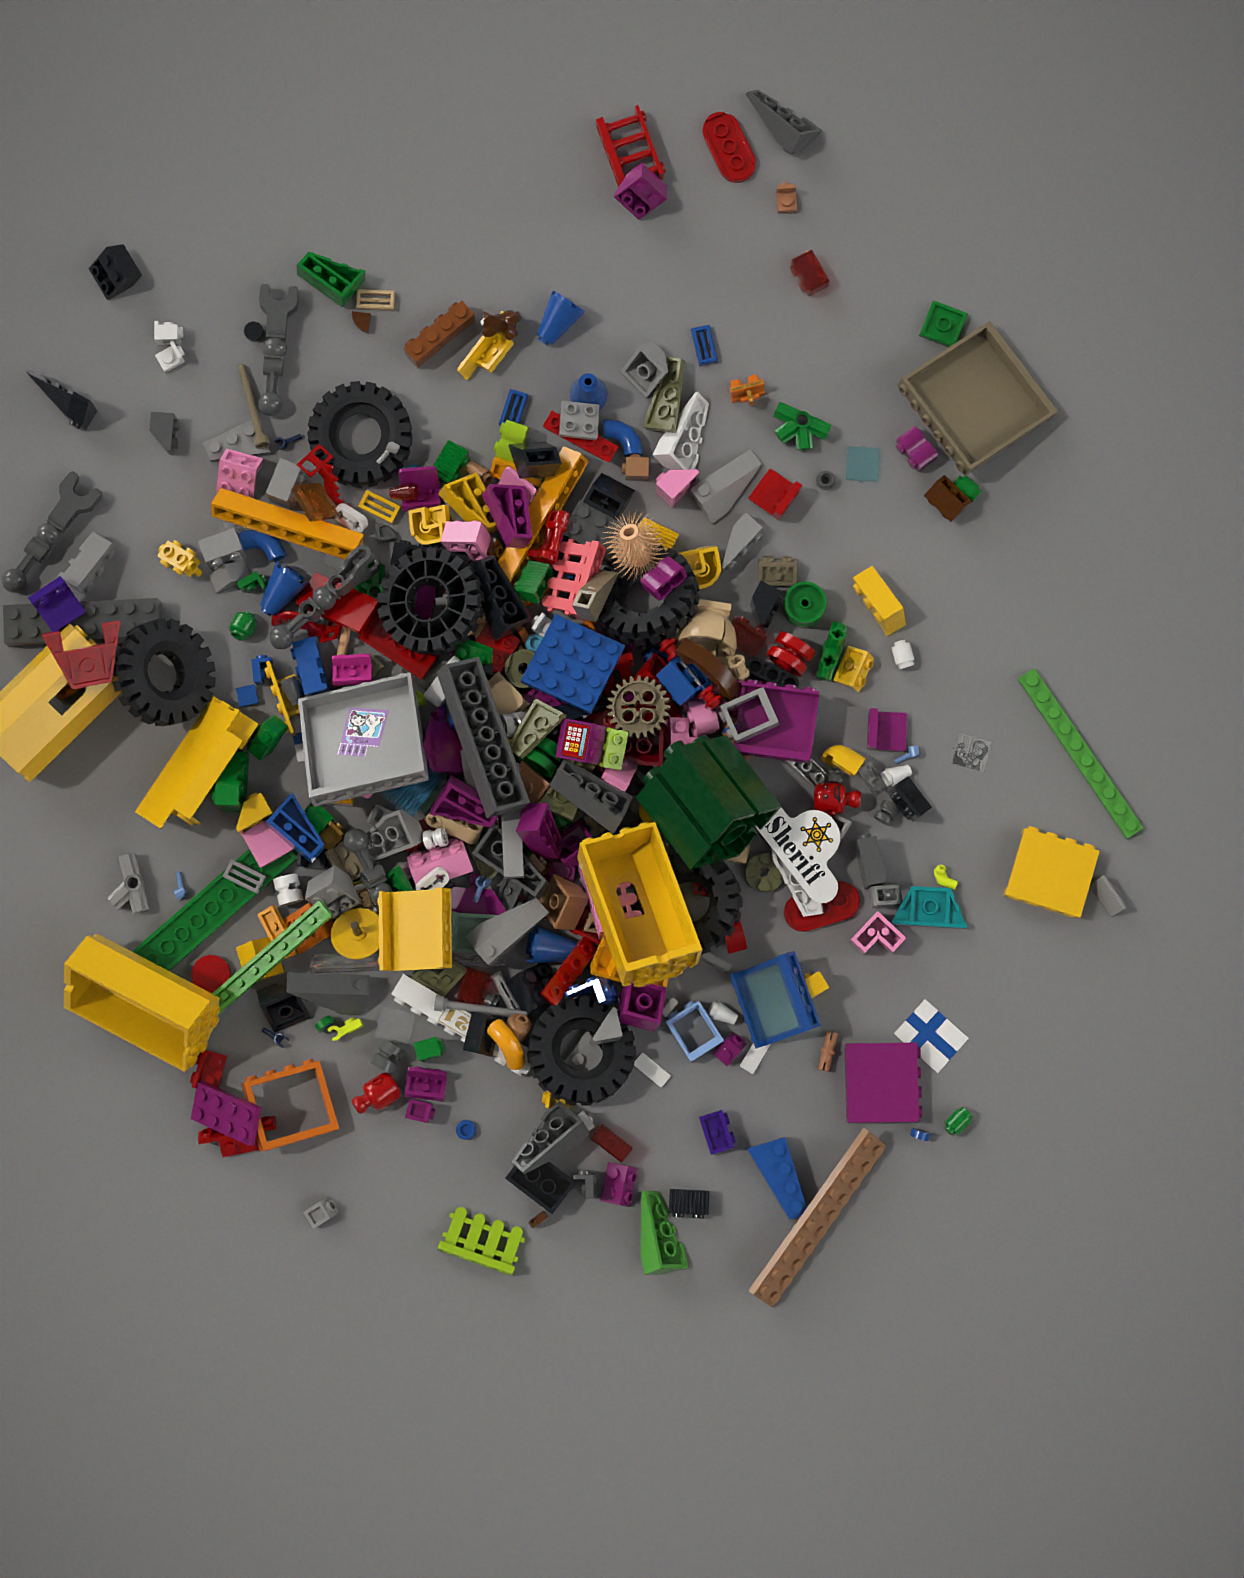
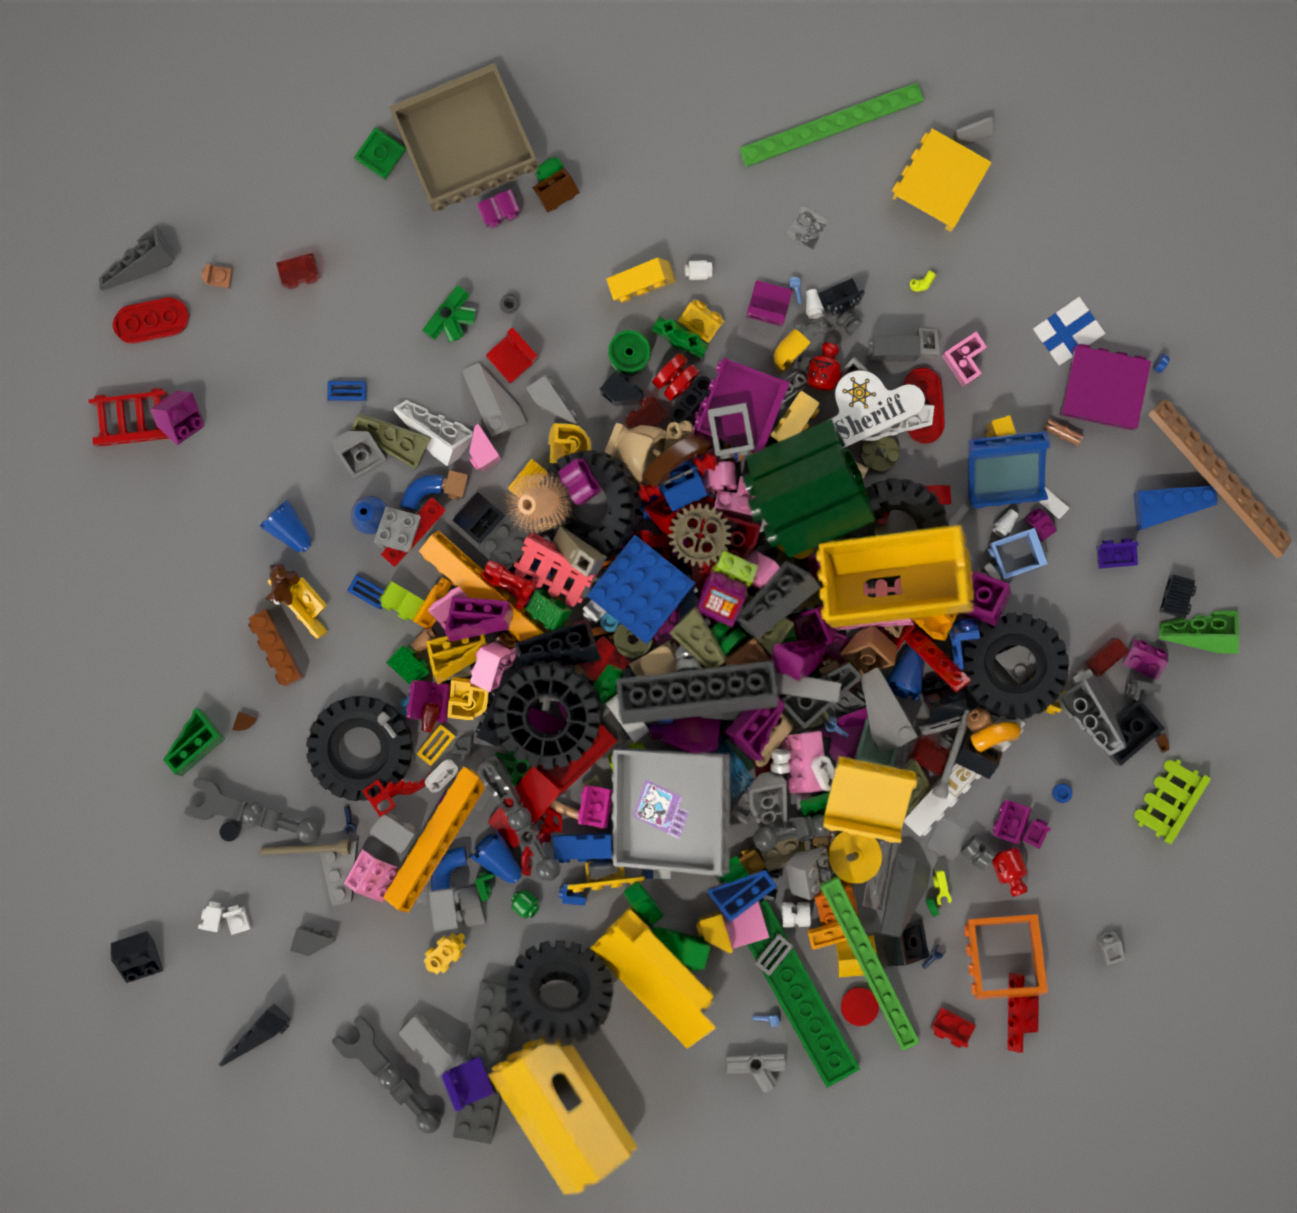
camera: 75 degrees left, 5 degrees up
(87, 664) = (540, 1066): red wing -> none
(139, 1001) = (877, 1081): yellow panel -> none
(226, 1113) = (1001, 1020): magenta plate -> none
(247, 696) = (595, 914): blue tile -> none
(314, 502) = (420, 807): clear orange plate -> none
(391, 301) = (225, 705): tan tile -> none
(429, 1049) = (980, 811): green brick -> none
(535, 459) = (426, 581): black slope -> none
(608, 1030) = (1002, 634): light grey slope -> none
(651, 1070) = (1043, 603): white sticker -> none
(748, 391) = (405, 359): orange hips -> none
(777, 571) = (589, 371): dark tan bracket -> none
(779, 781) = (795, 418): none -> yellow wedge
(862, 464) = (500, 265): clear light blue piece -> none
(929, 908) = (949, 303): teal wing -> none
(958, 1121) = (1157, 324): green brick -> none

